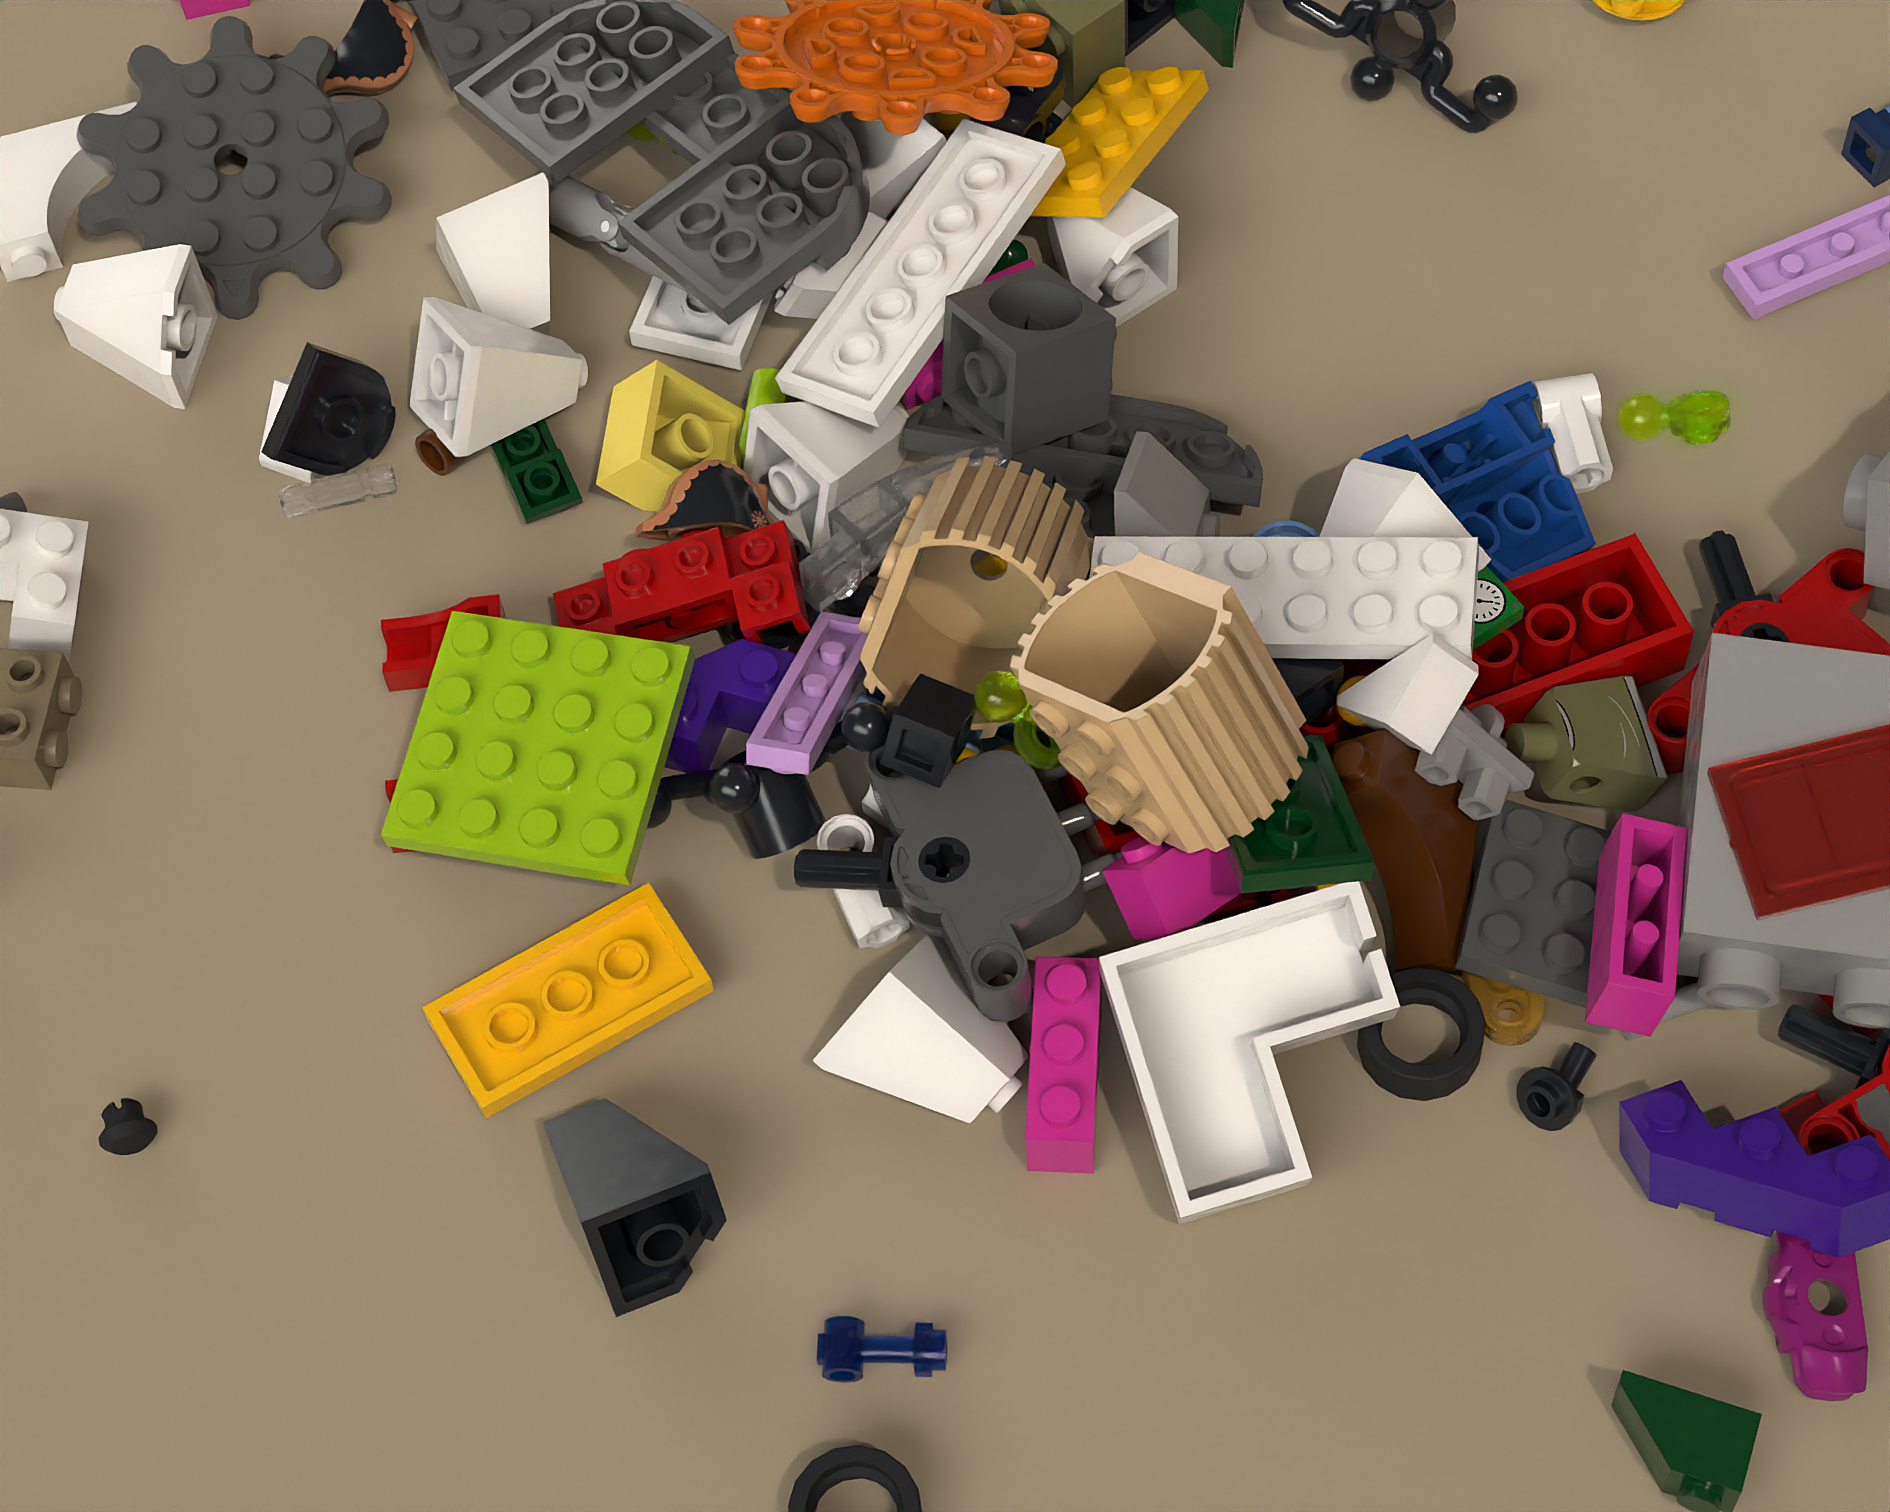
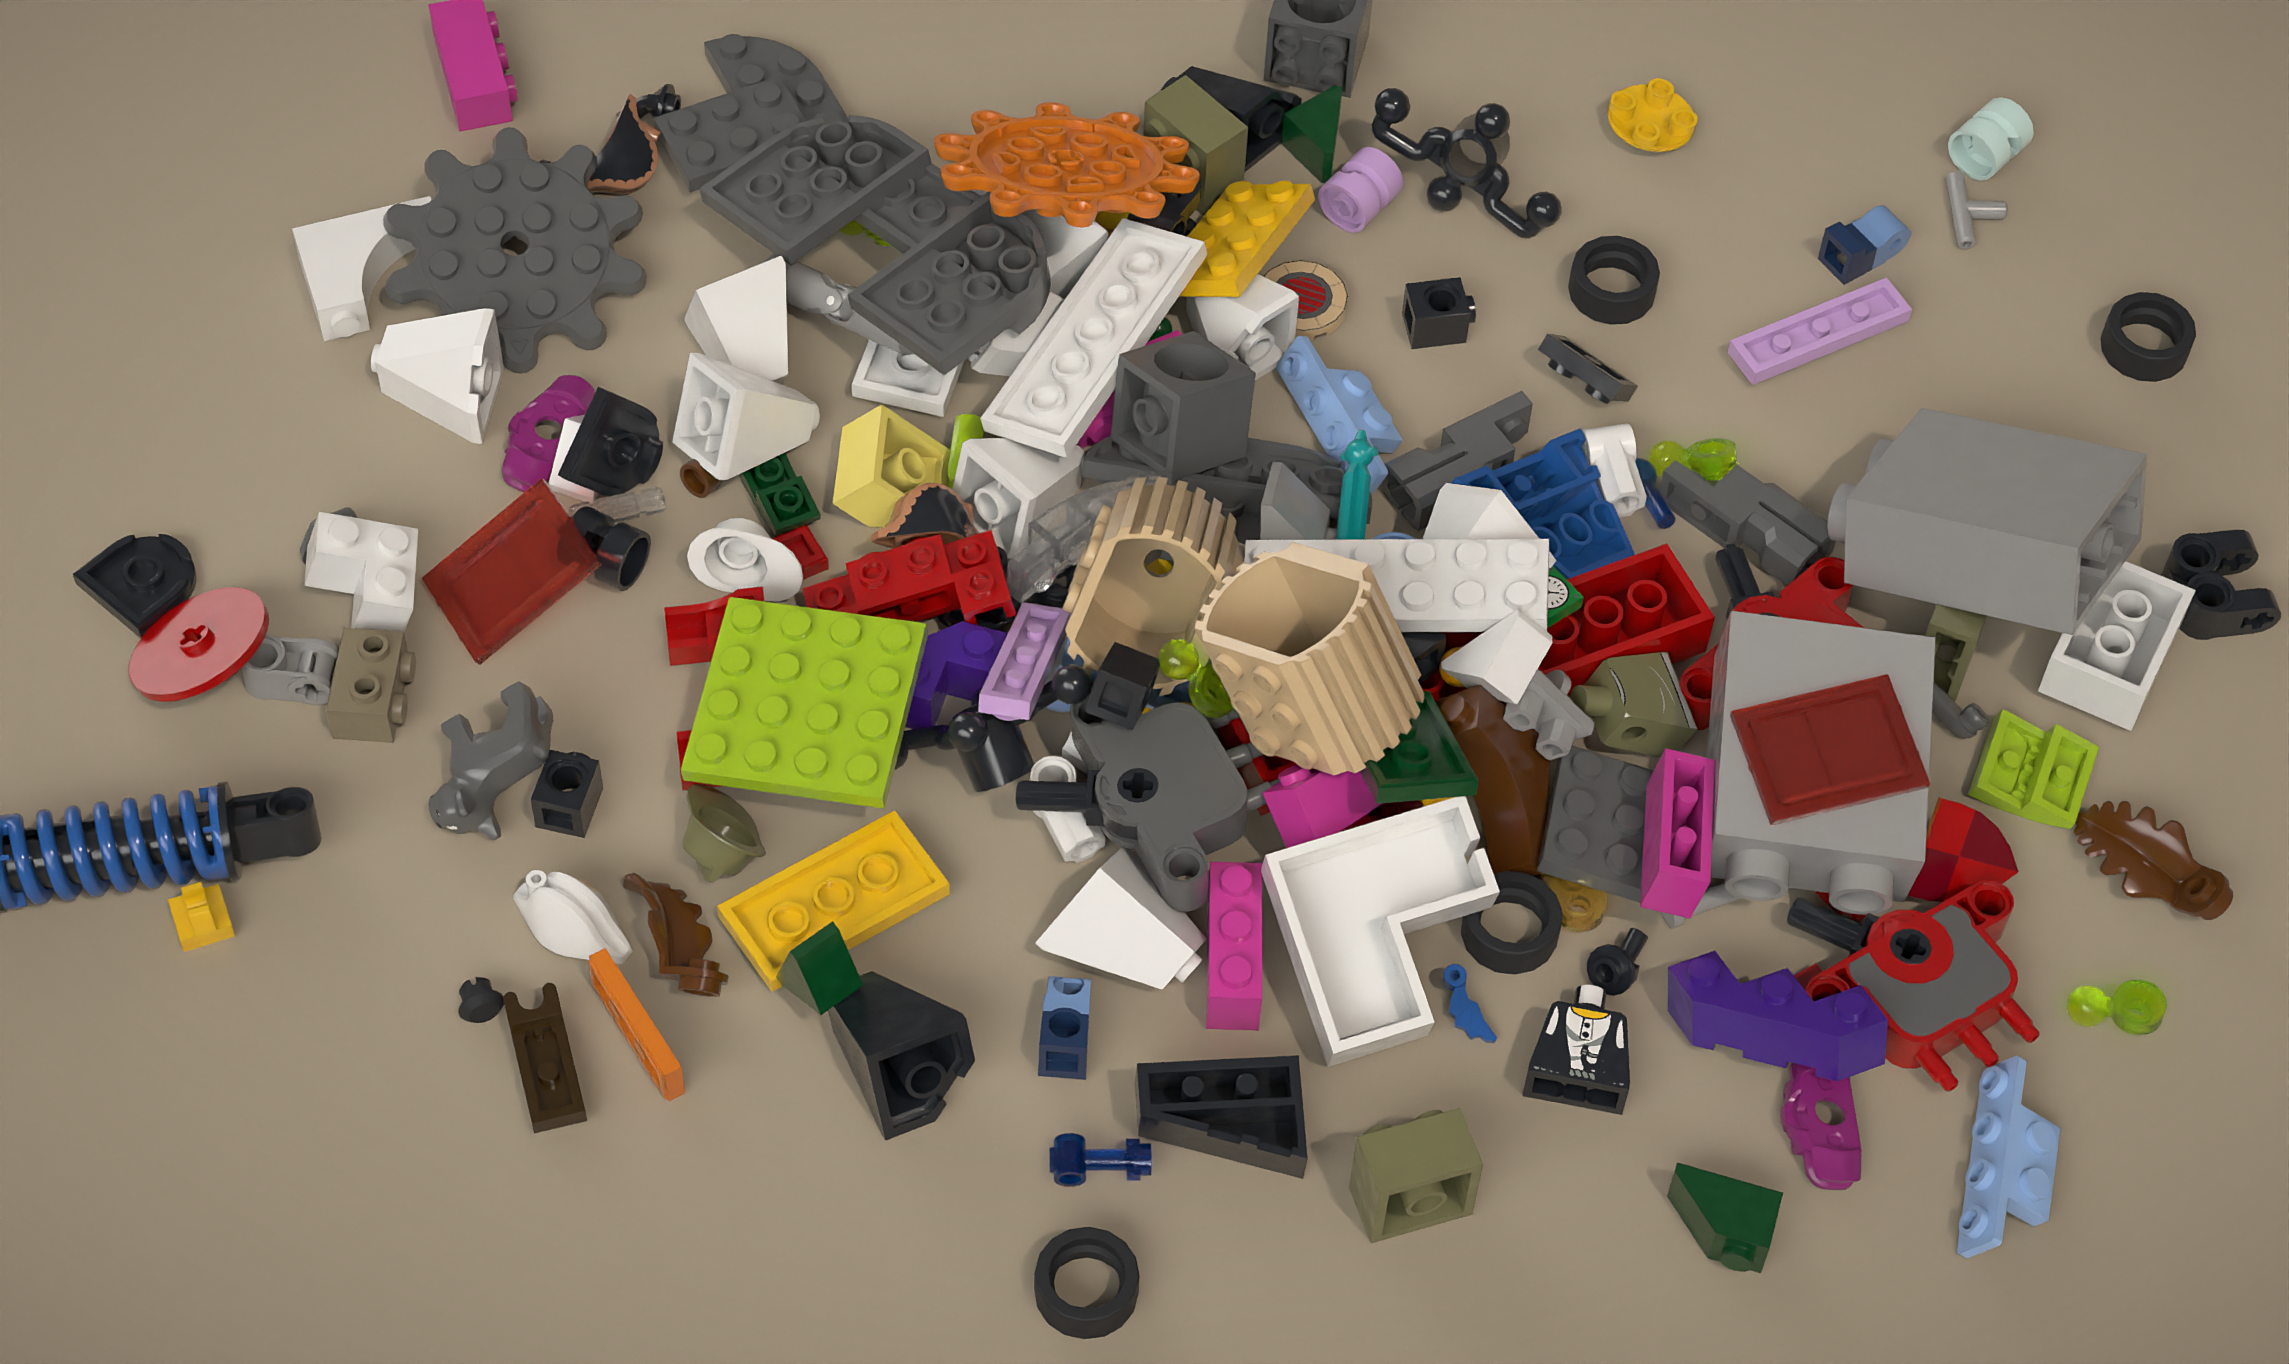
camera: 10 degrees left, 5 degrees down
(157, 819) = (491, 762): none -> dark grey animal
(199, 574) = (511, 571): none -> clear red piece
(199, 1210) = (545, 1062): none -> dark brown plate
(234, 422) = (529, 455): none -> magenta piece
(248, 1021) = (570, 916): none -> white hat
(252, 881) = (567, 810): none -> black brick
(312, 1164) = (636, 1025): none -> orange tile
(314, 542) = (618, 547): none -> black wheel
(372, 1045) = (679, 938): none -> reddish brown plant
(432, 910) = (719, 833): none -> olive piece
(483, 555) = (744, 556): none -> white piece
(537, 1102) = (820, 970): none -> dark green slope
(551, 549) = (806, 550): none -> red tile
(846, 1171) = (1065, 1028): none -> dark blue leg
(1043, 1287) = (1227, 1109): none -> black wedge
(1208, 211) = (1320, 293): none -> tile
(1232, 362) = (1338, 406): none -> light blue bracket
(1240, 467) = (1355, 488): none -> teal wheel
(1268, 76) = (1361, 189): none -> lavender wheel
(1280, 1381) = (1415, 1174): none -> olive brick
(1356, 1151) = (1465, 1011): none -> blue piece
(1357, 231) = (1437, 313): none -> black brick
(1386, 406) = (1465, 447): none -> dark grey plate
(1505, 1214) = (1582, 1055): none -> black torso
(1525, 289) = (1571, 360): none -> black plate
(1588, 152) = (1620, 254): none -> black tyre
(1623, 472) = (1654, 502): none -> bar
(1745, 489) = (1751, 513): none -> dark grey plate

